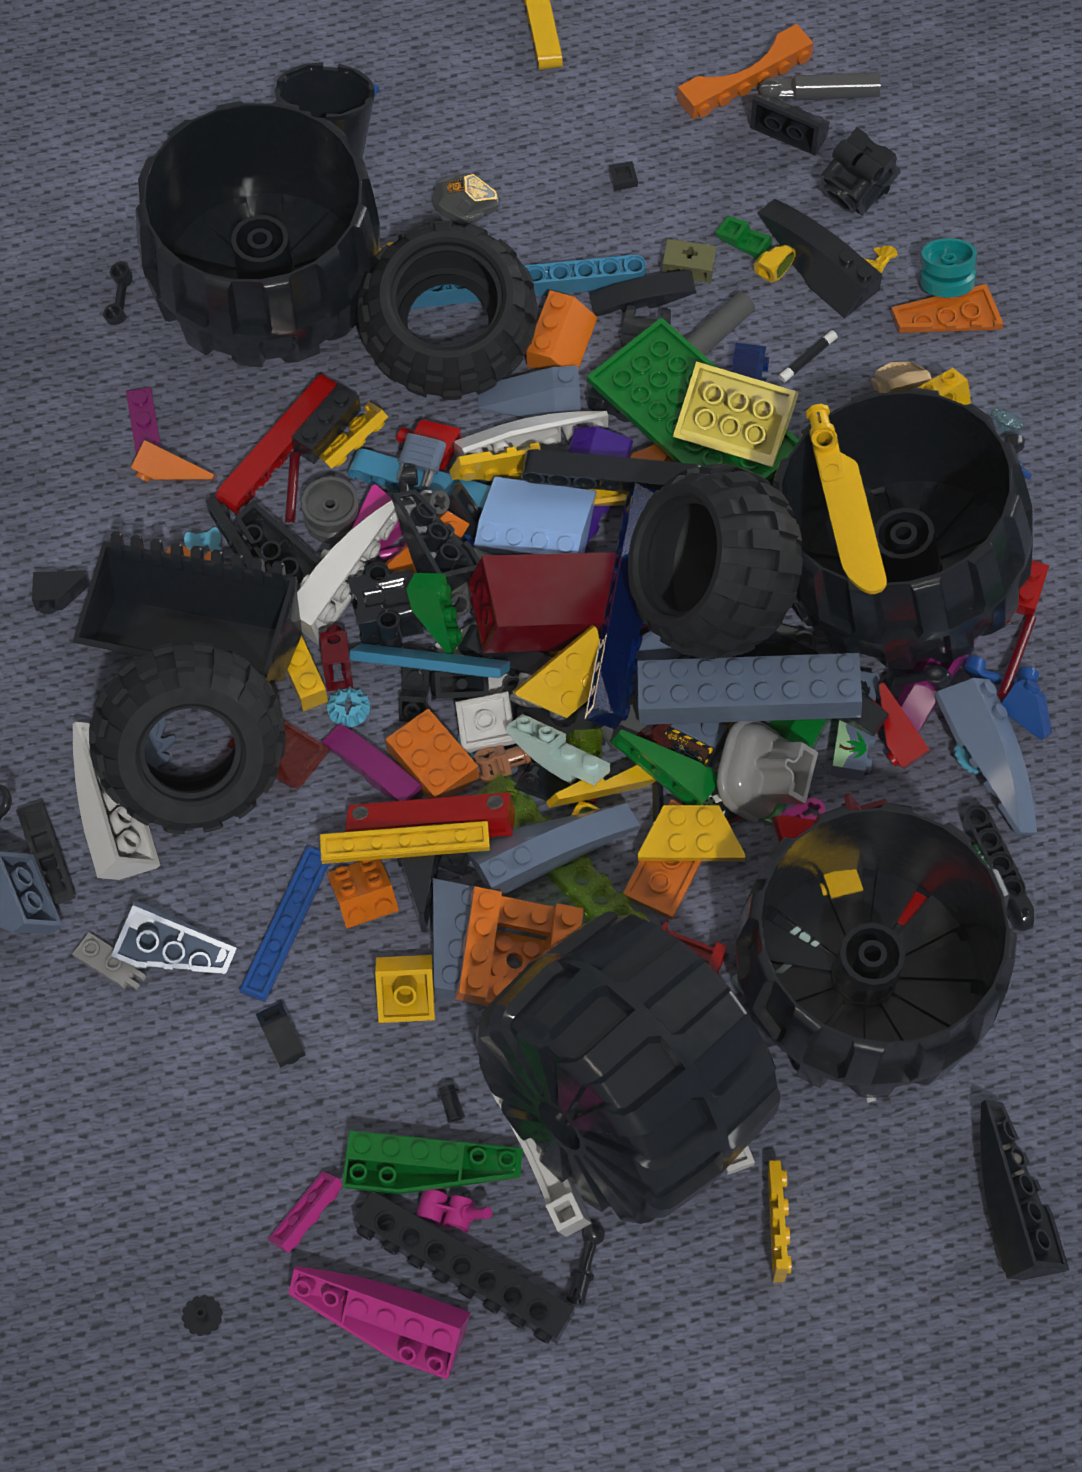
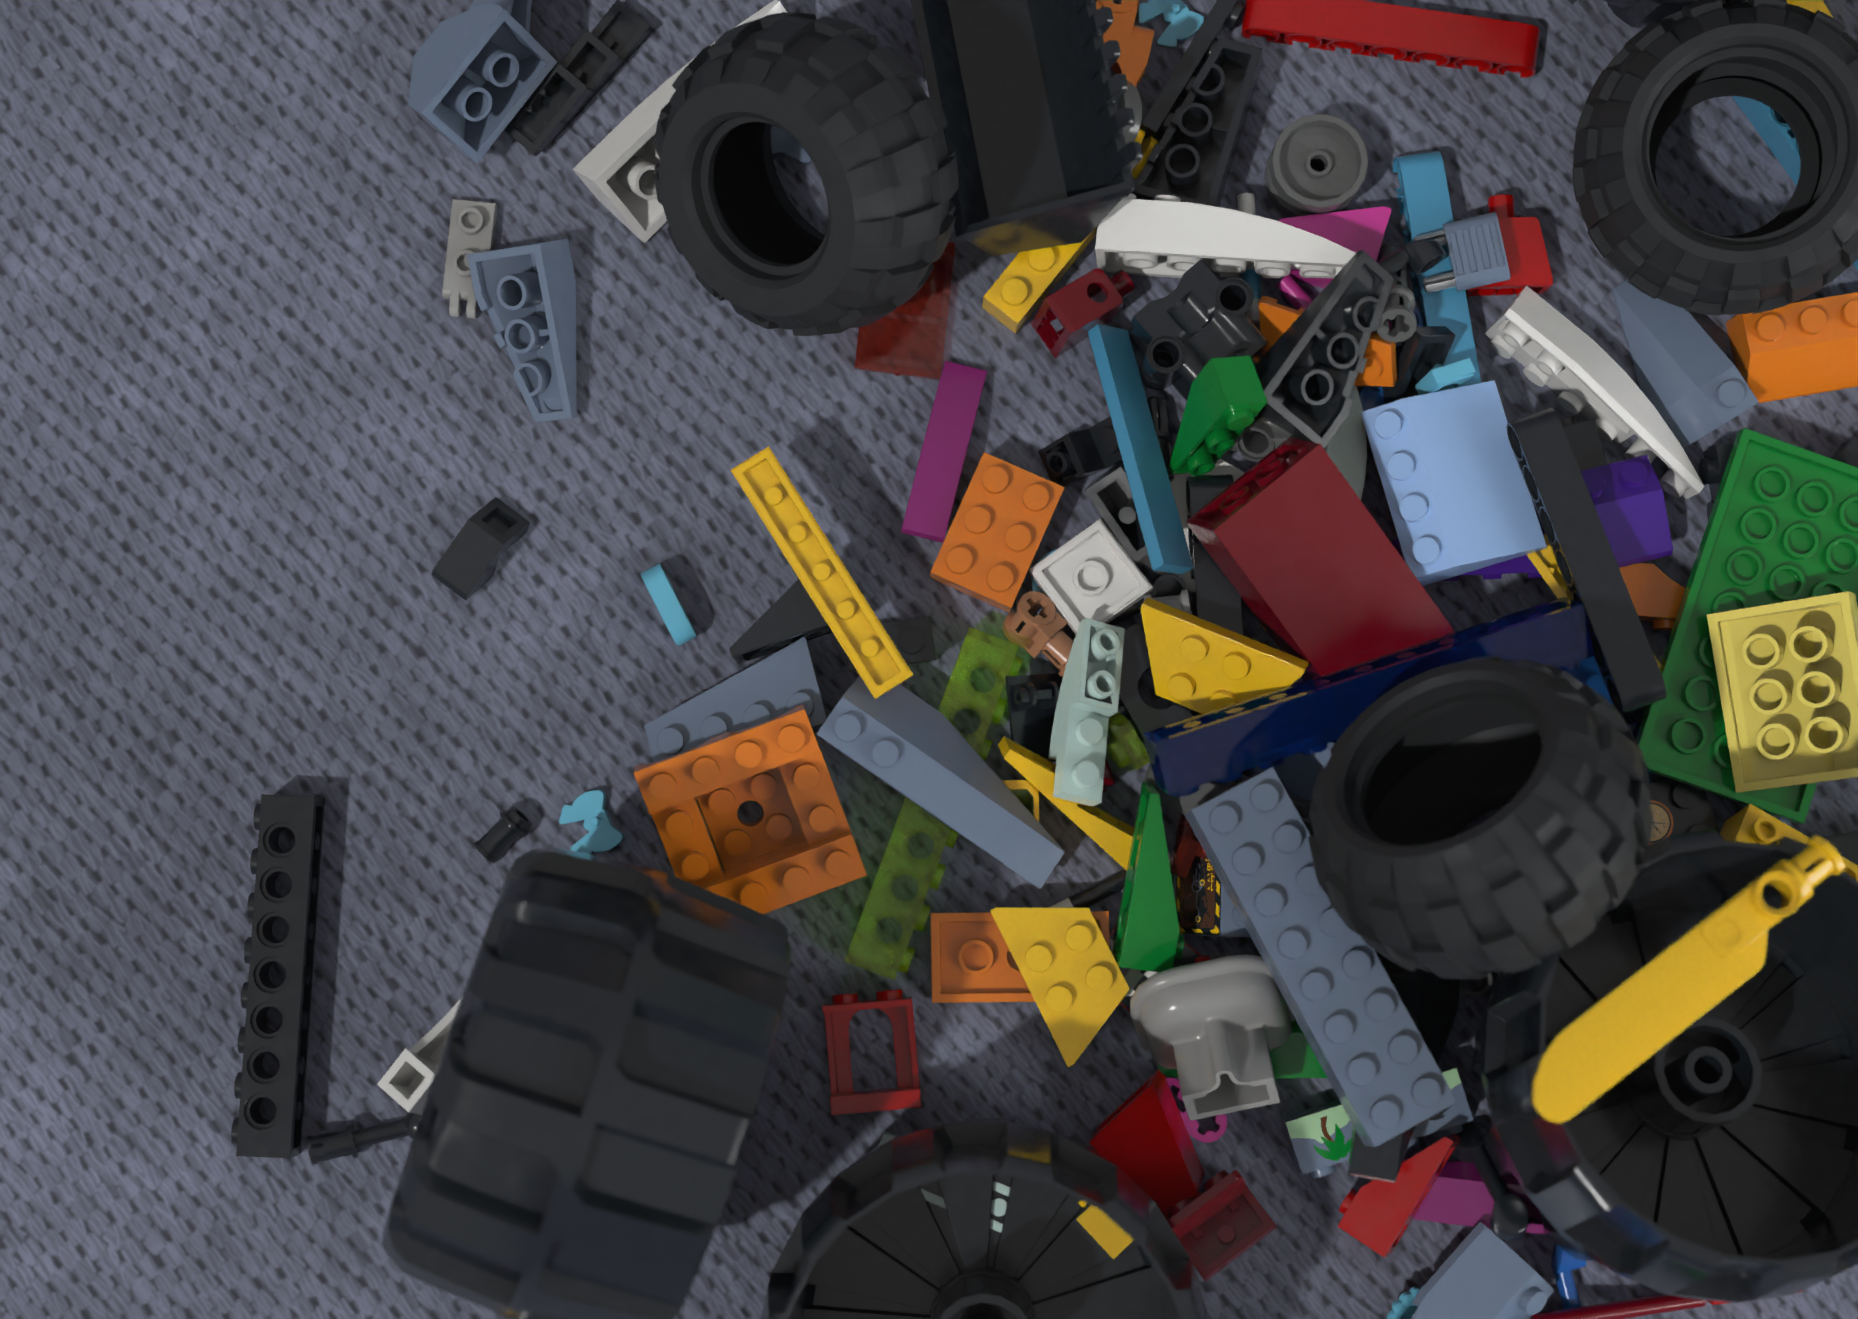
camera: 60 degrees right, 20 degrees up
(202, 1315) = (53, 660): black piece -> none
(285, 925) = (640, 464): blue tile -> none
(292, 488) = (1330, 91): dark red bar -> none
(305, 1212) = (251, 721): dark pink plate -> none
(326, 423) = (1458, 81): black brick -> none
(356, 714) = (1014, 387): medium azure gear -> none
(359, 429) = (1477, 136): yellow wing -> none
(363, 892) = (737, 550): orange bracket -> none
(371, 948) = (668, 604): none -> medium azure beam
(386, 1317) = (163, 909): dark pink wedge -> none
(405, 988) = (634, 680): yellow slope -> none
(423, 1164) = (387, 846): green wedge -> none
(457, 1212) = (351, 923): dark pink beam -> none
(462, 1051) = (591, 809): none -> medium azure piece
(479, 497) = (1446, 377): none -> medium azure tile
(487, 466) = (1506, 357): yellow wing -> none
(494, 808) = (892, 583): red piece -> none

